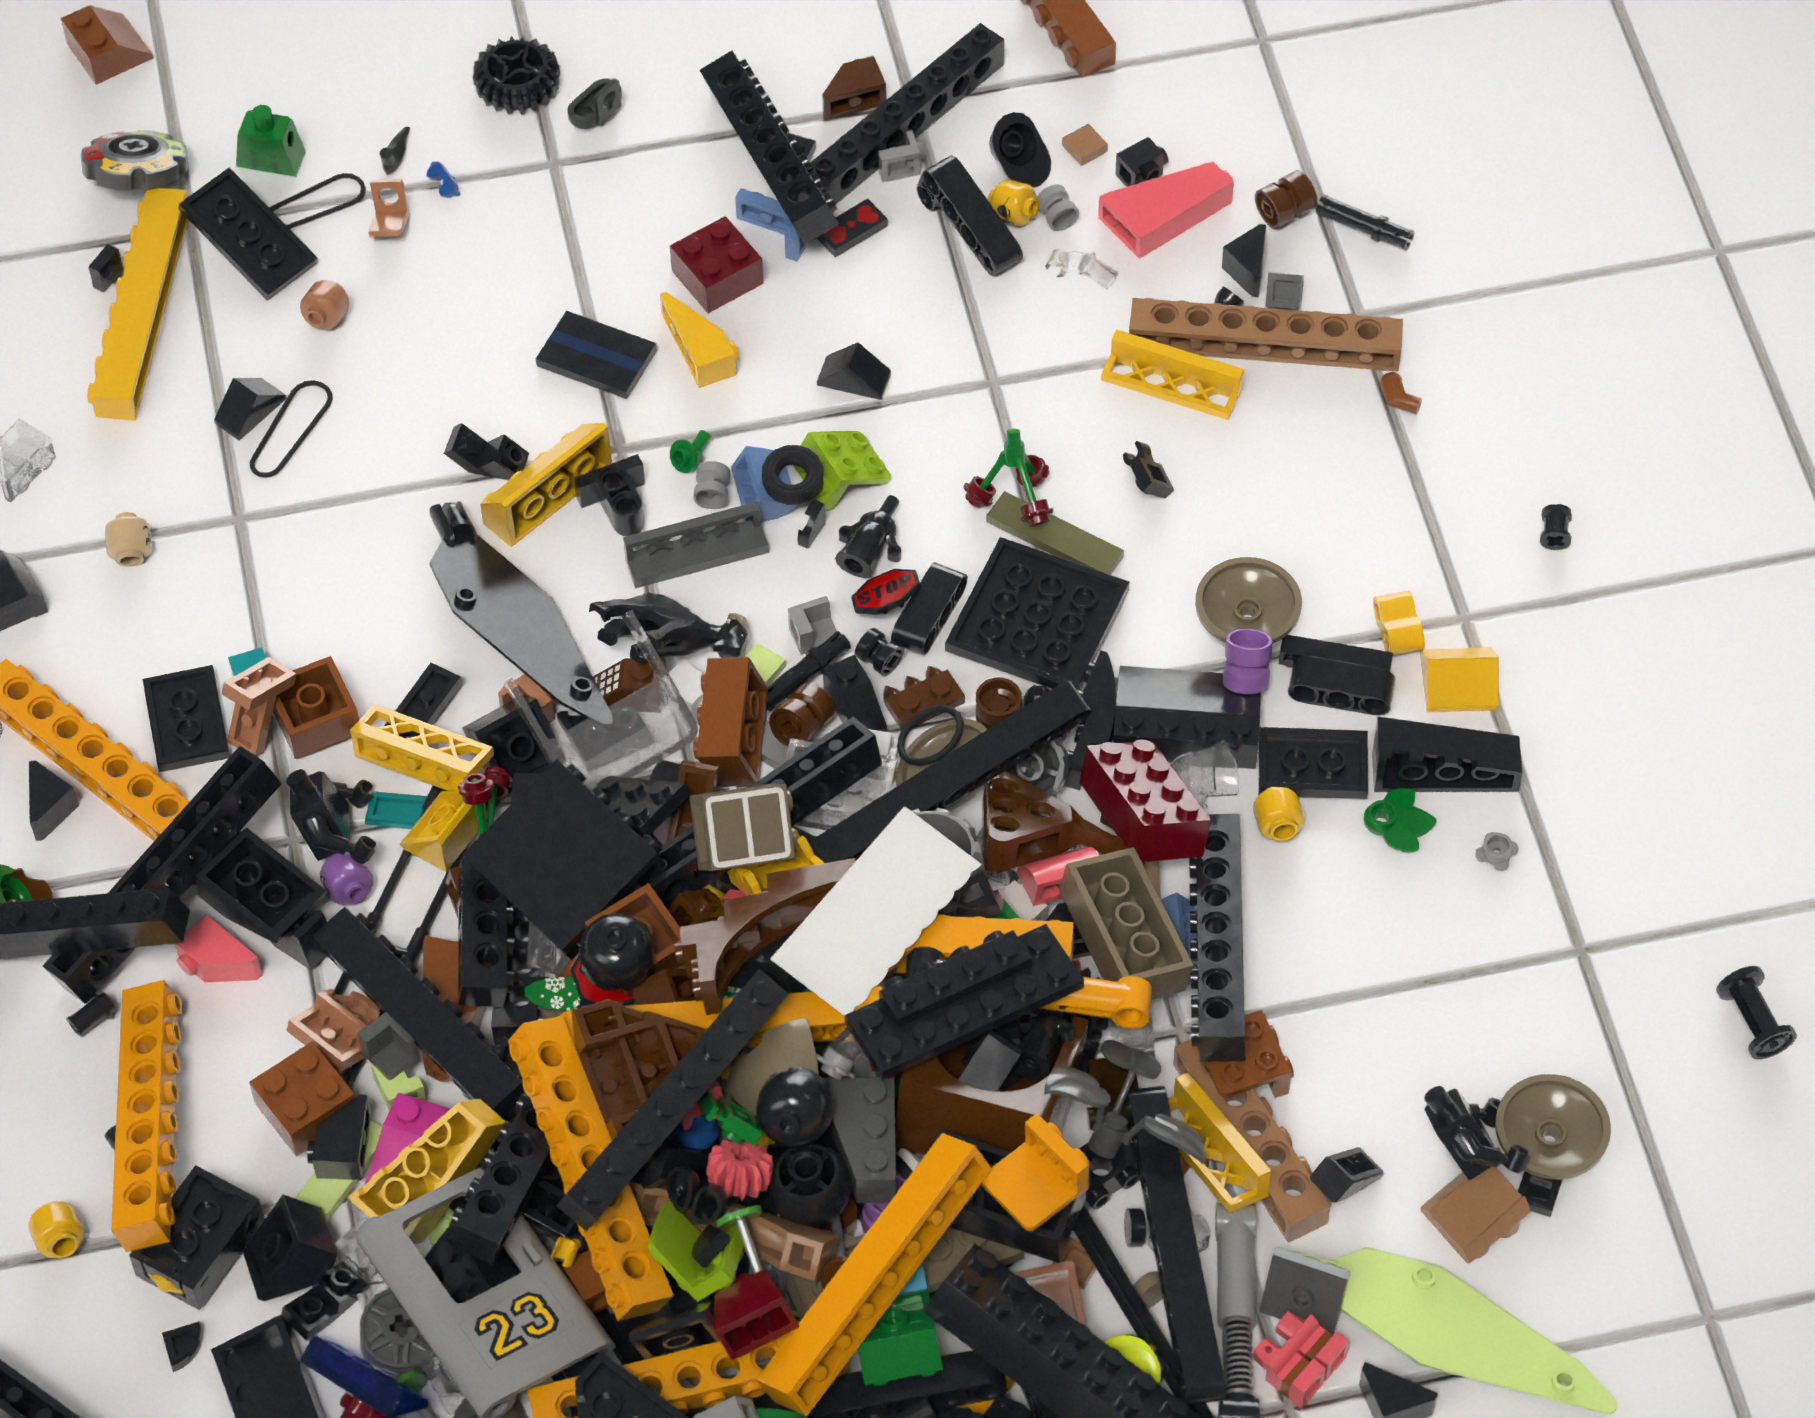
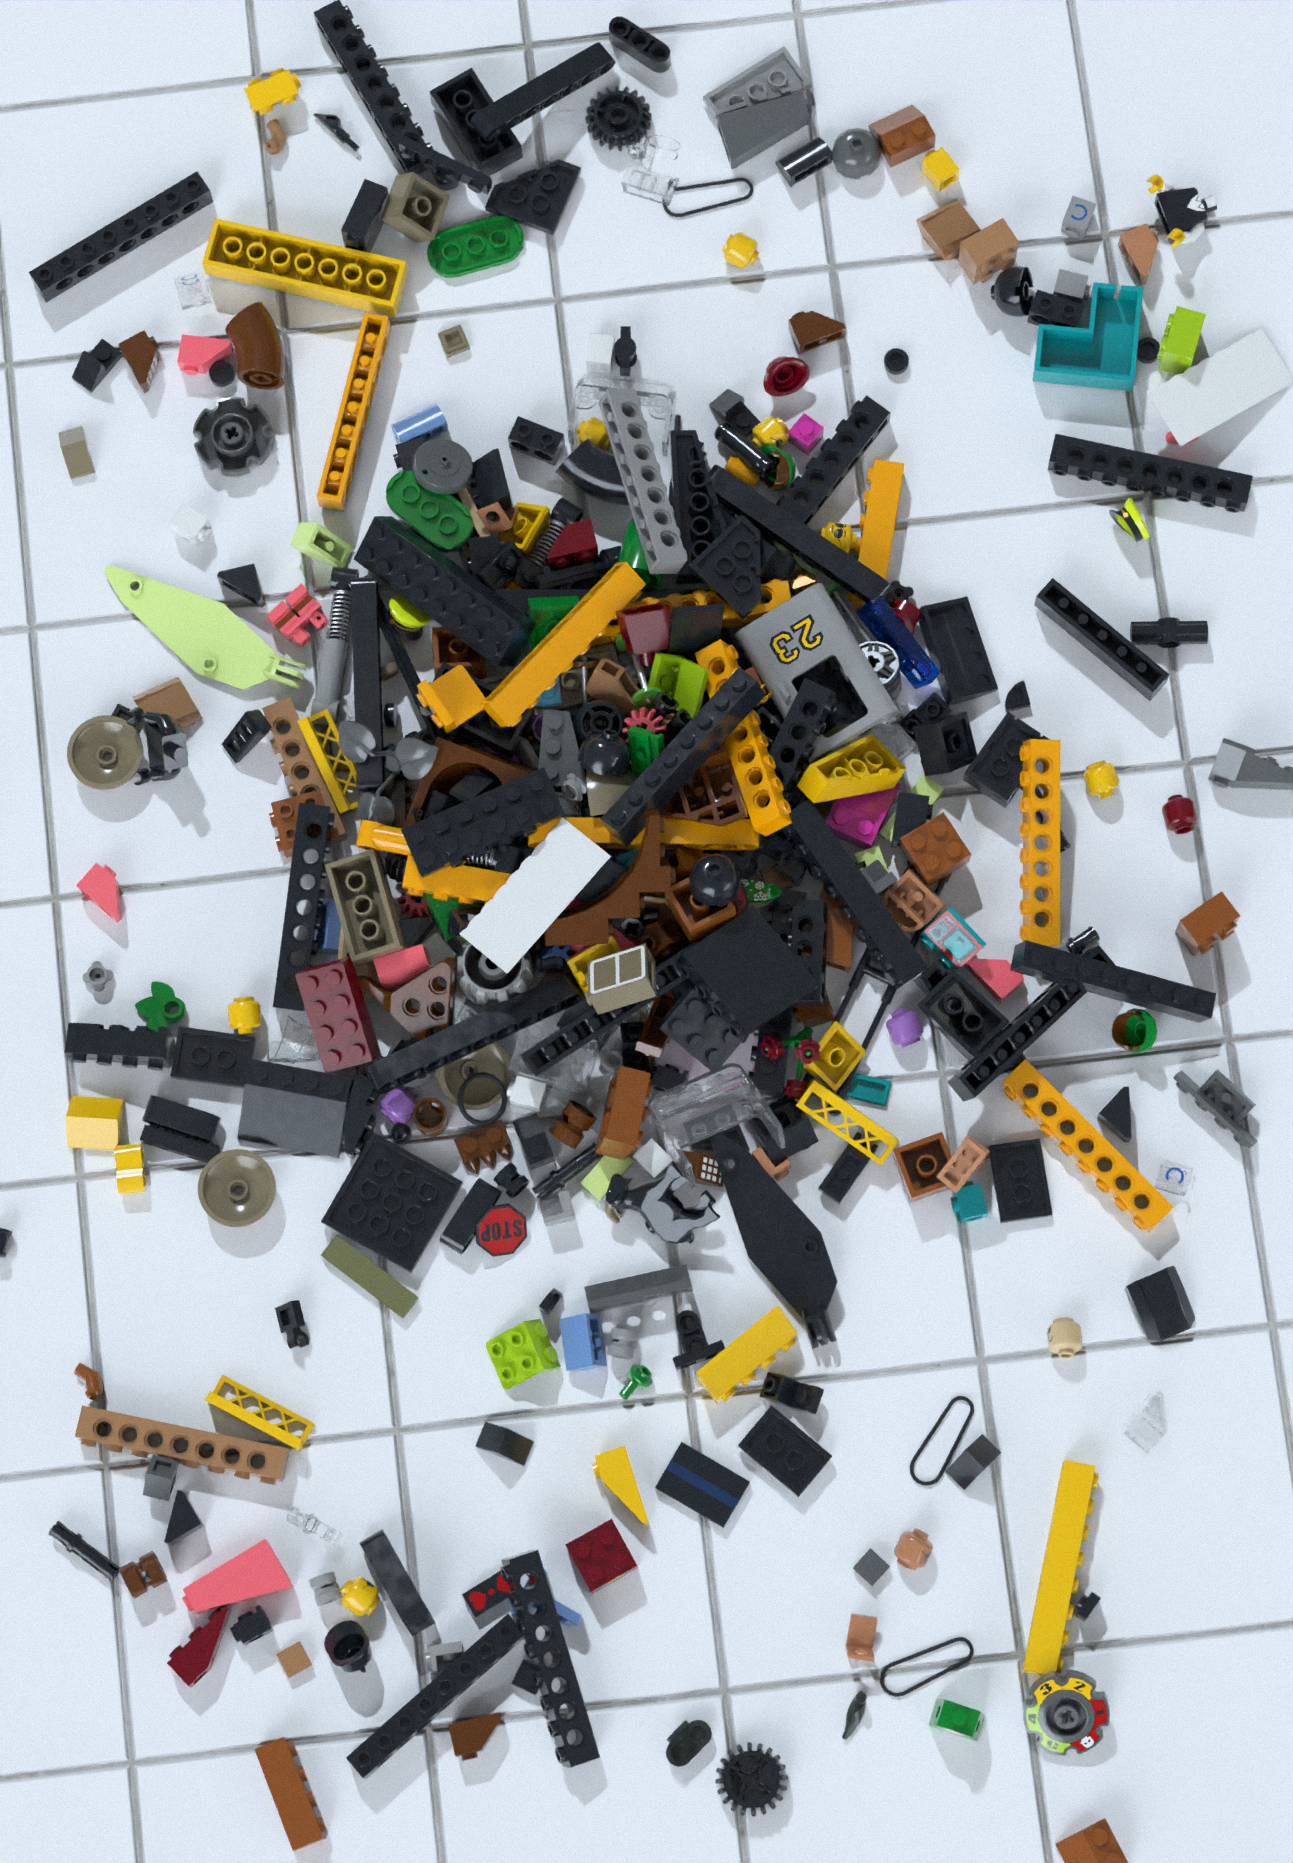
camera: 170 degrees left, 20 degrees up
(248, 233) = (974, 1626): black tile -> none
(276, 980) = (951, 939): none -> slope
(323, 814) = (919, 1067): black torso -> none
(378, 290) = (871, 1567): none -> dark grey tile
(448, 186) = (820, 1685): blue piece -> none
(492, 393) = (785, 1451): none -> black plate
(709, 1245) = (671, 685): black tile -> none
(799, 492) = (557, 1345): black tyre -> none
(866, 540) = (503, 1291): black piece -> none
(1030, 472) = (380, 1331): plant -> none
(1205, 131) = (199, 1653): none -> dark red slope
(1227, 297) = (204, 1483): black hinge -> none
(1247, 661) = (246, 1132): medium lavender wheel -> none
(1304, 1288) = (288, 651): dark grey plate -> none
(1514, 951) = (102, 889): none -> coral slope

